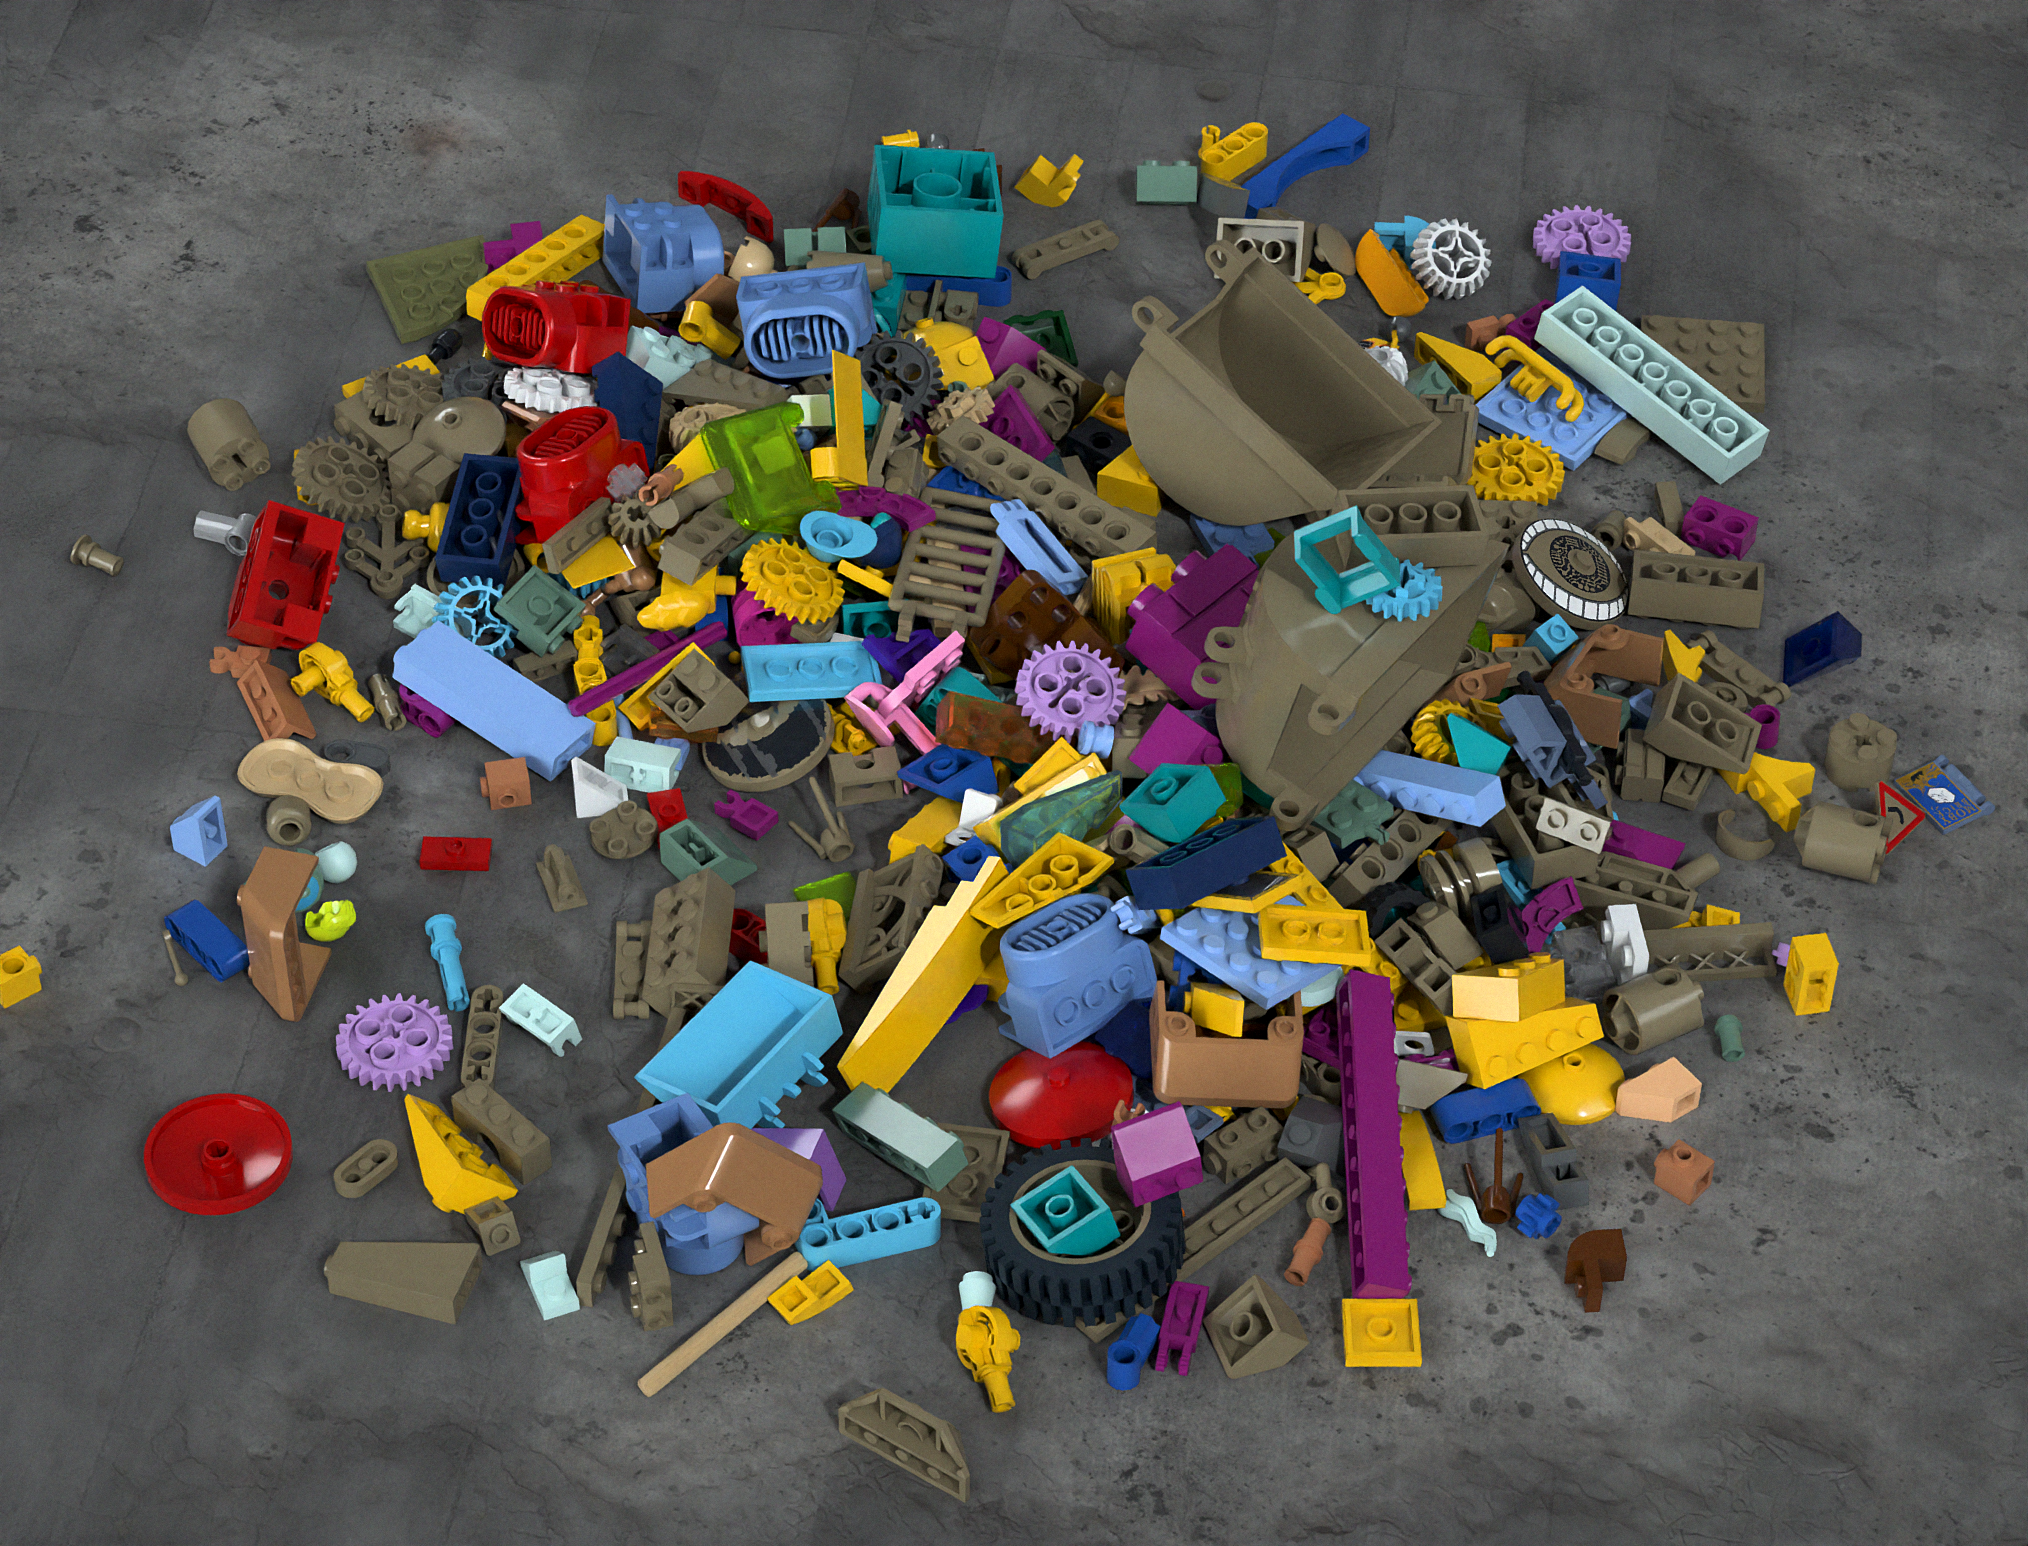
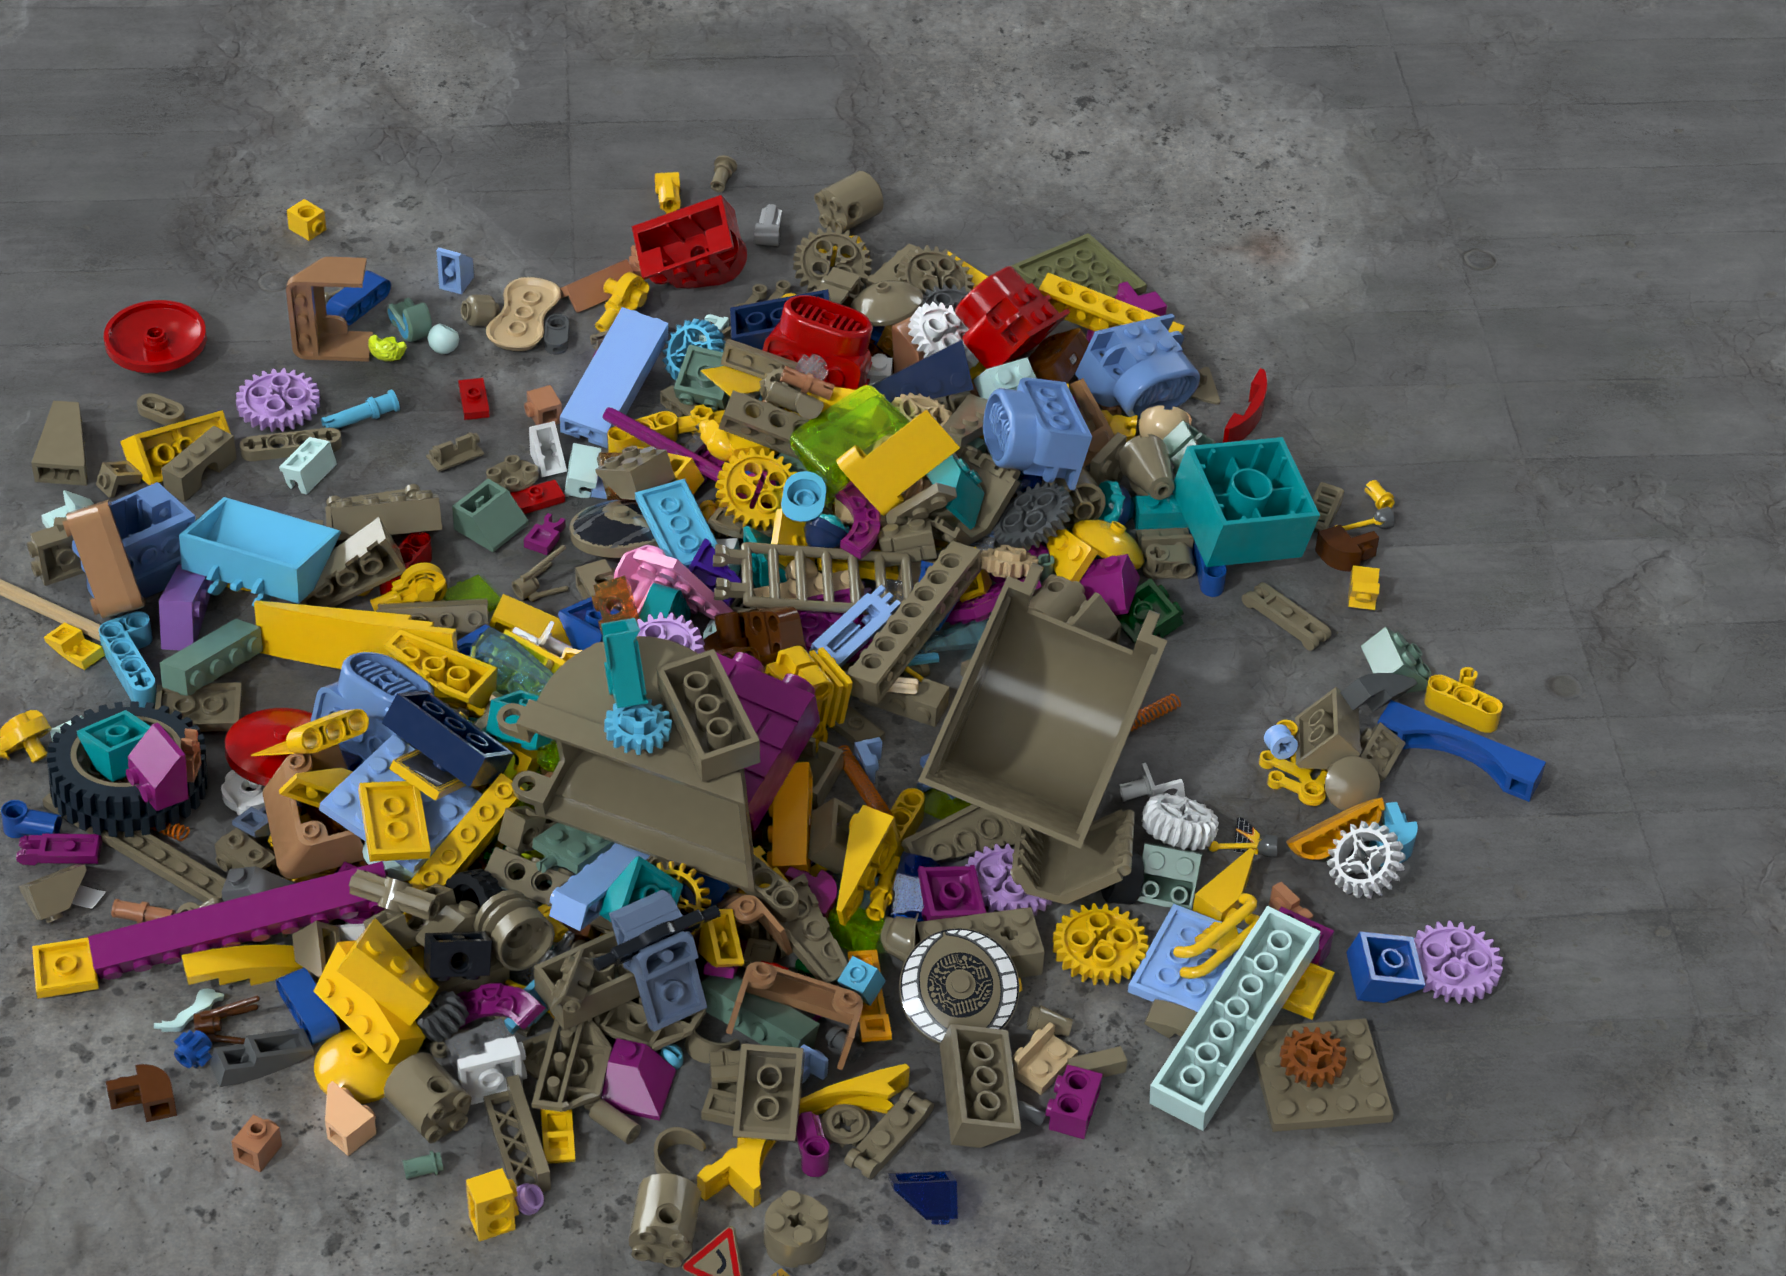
camera: 75 degrees right, 0 degrees up
(100, 609) = (668, 189): none -> yellow piece
(1134, 1020) = (313, 735): none -> yellow piece
(1410, 960) = (395, 895): none -> dark tan piece
(1704, 348) = (1313, 1057): none -> dark orange gear

